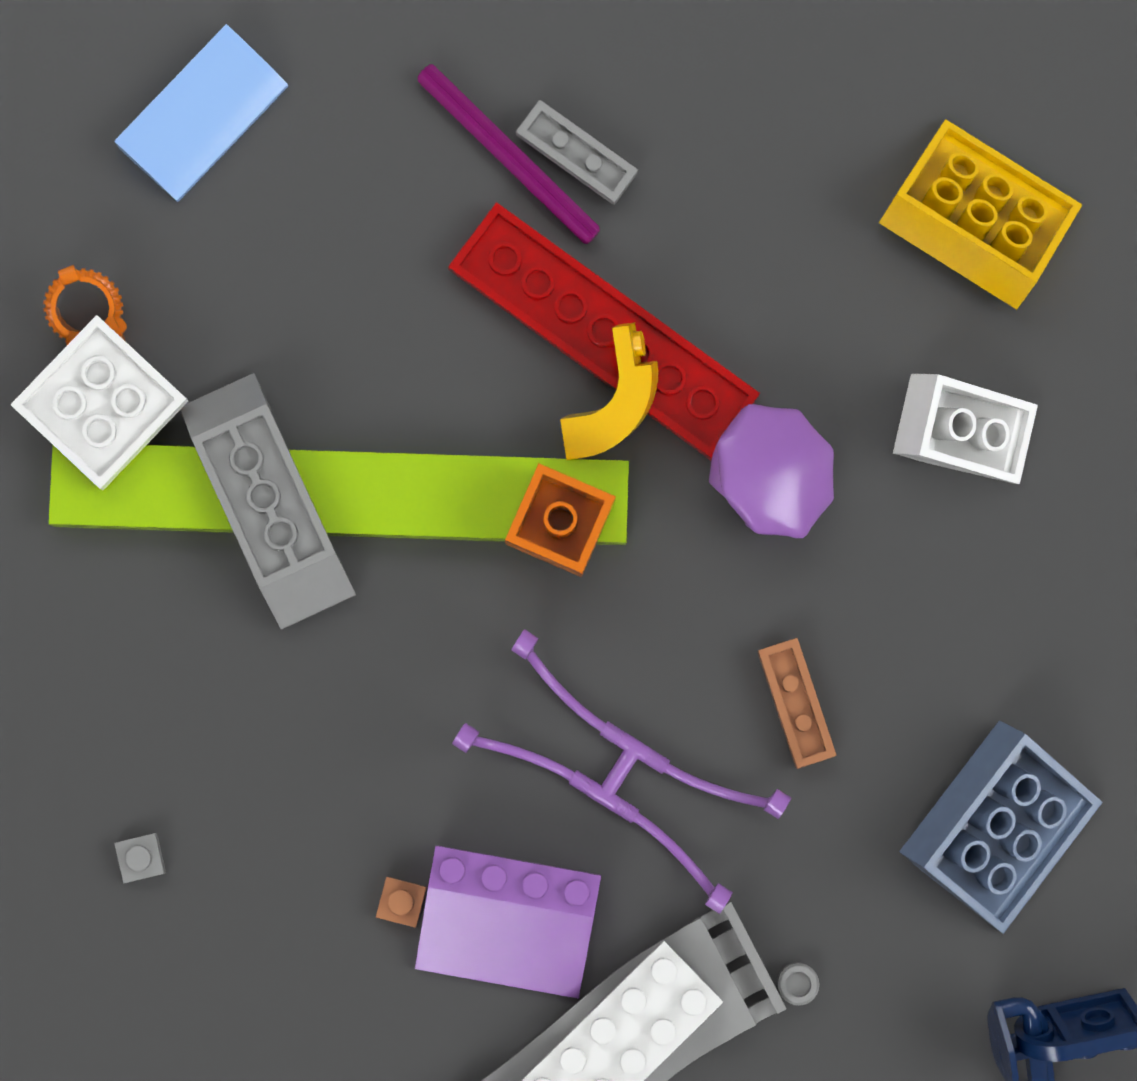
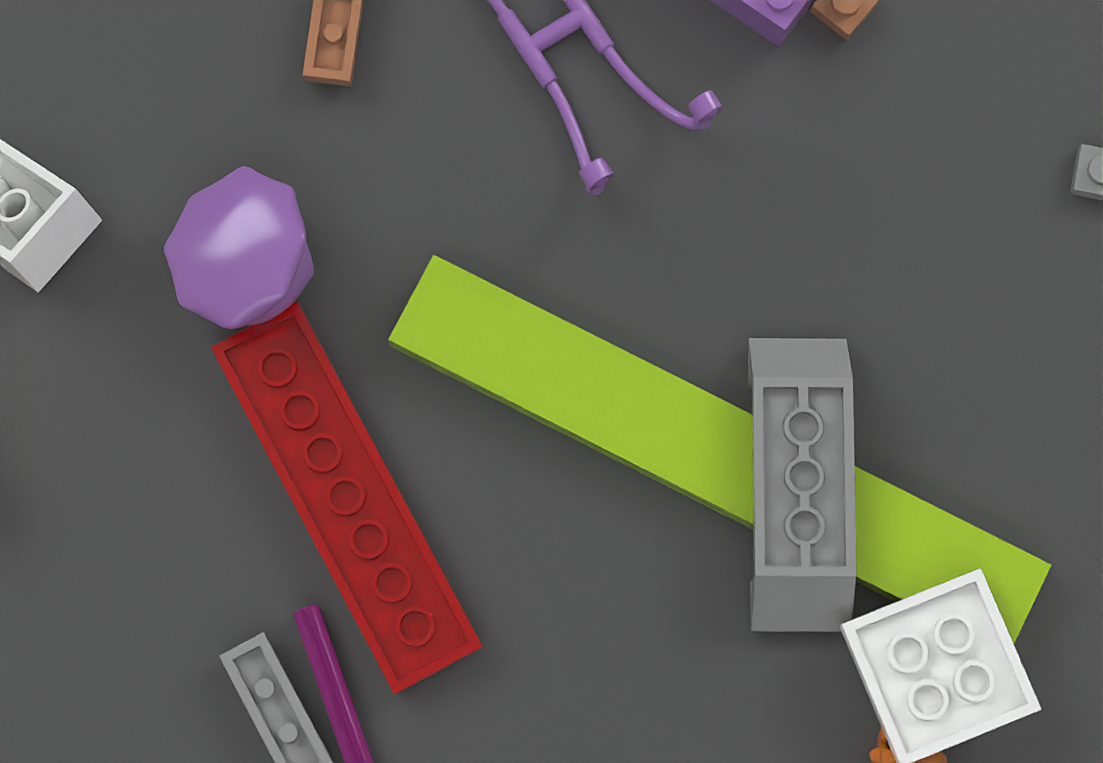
camera: 155 degrees left, 5 degrees down
(560, 520) = (494, 297): orange brick -> none
(602, 429) = (385, 384): yellow arch -> none

